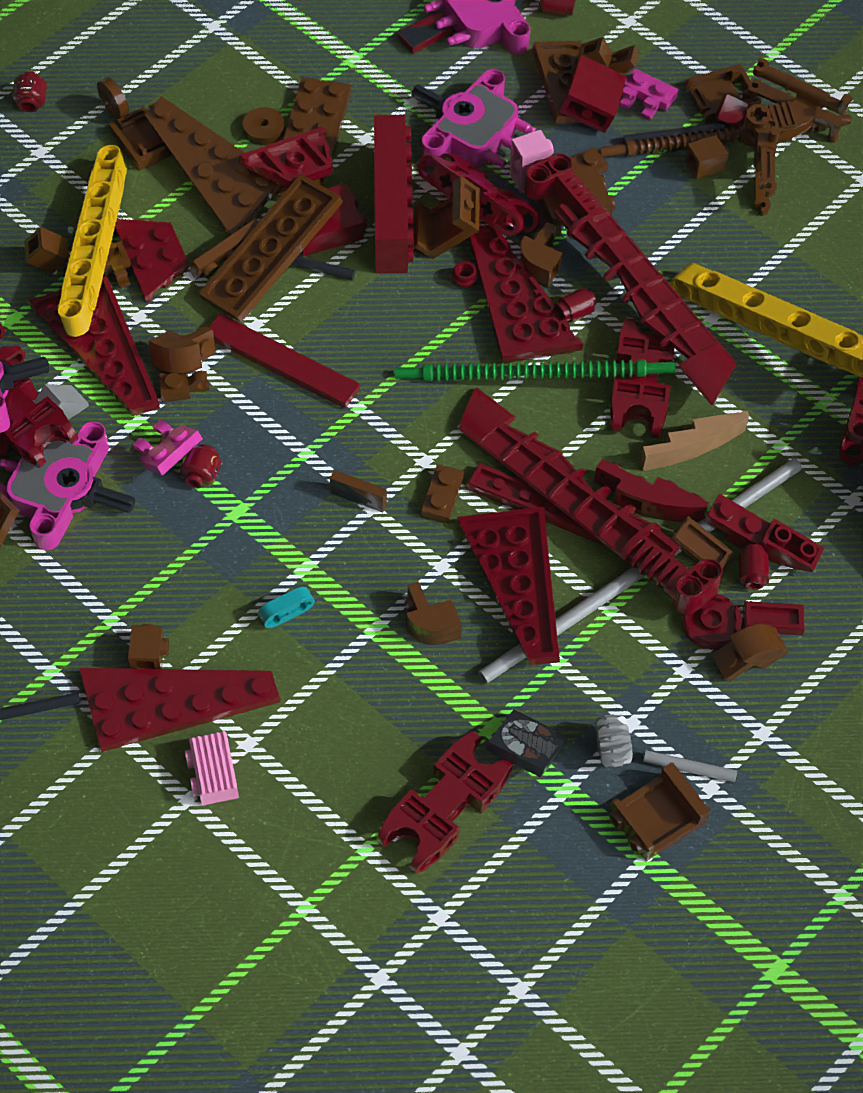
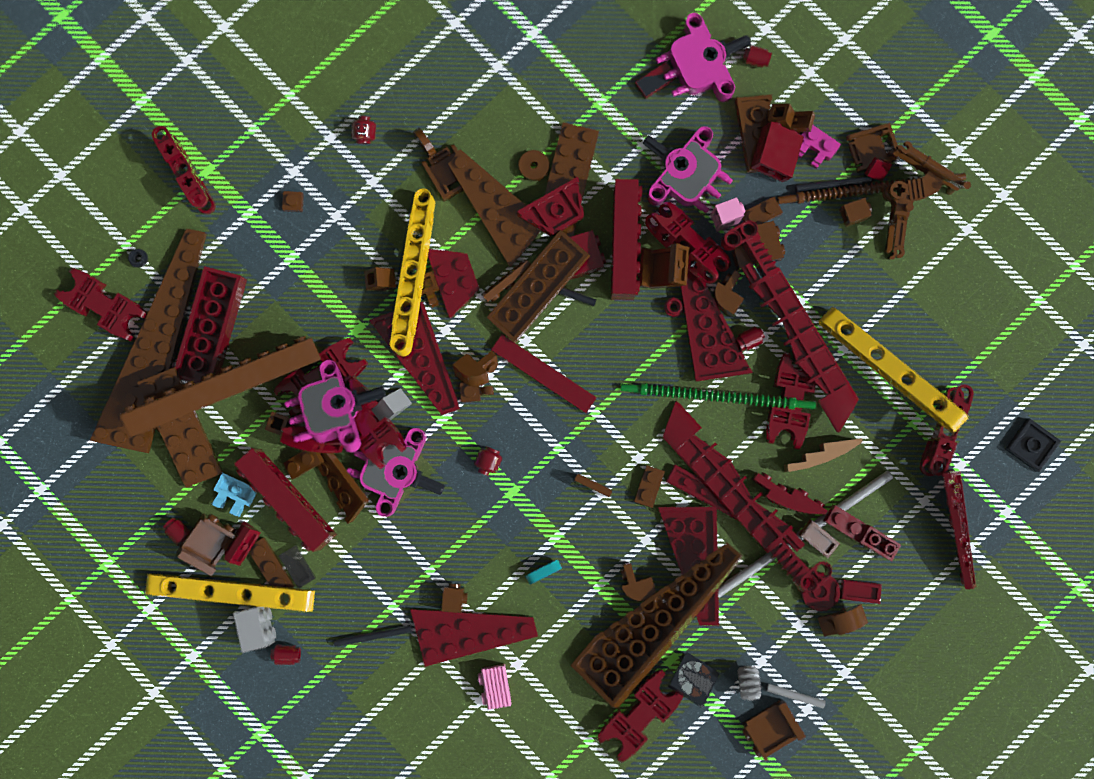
camera: 10 degrees right, 25 degrees up
(172, 448) = (468, 451): dark pink plate -> none
(426, 702) = (632, 646): none -> reddish brown wedge
(753, 567) = (852, 556): dark red brick -> none

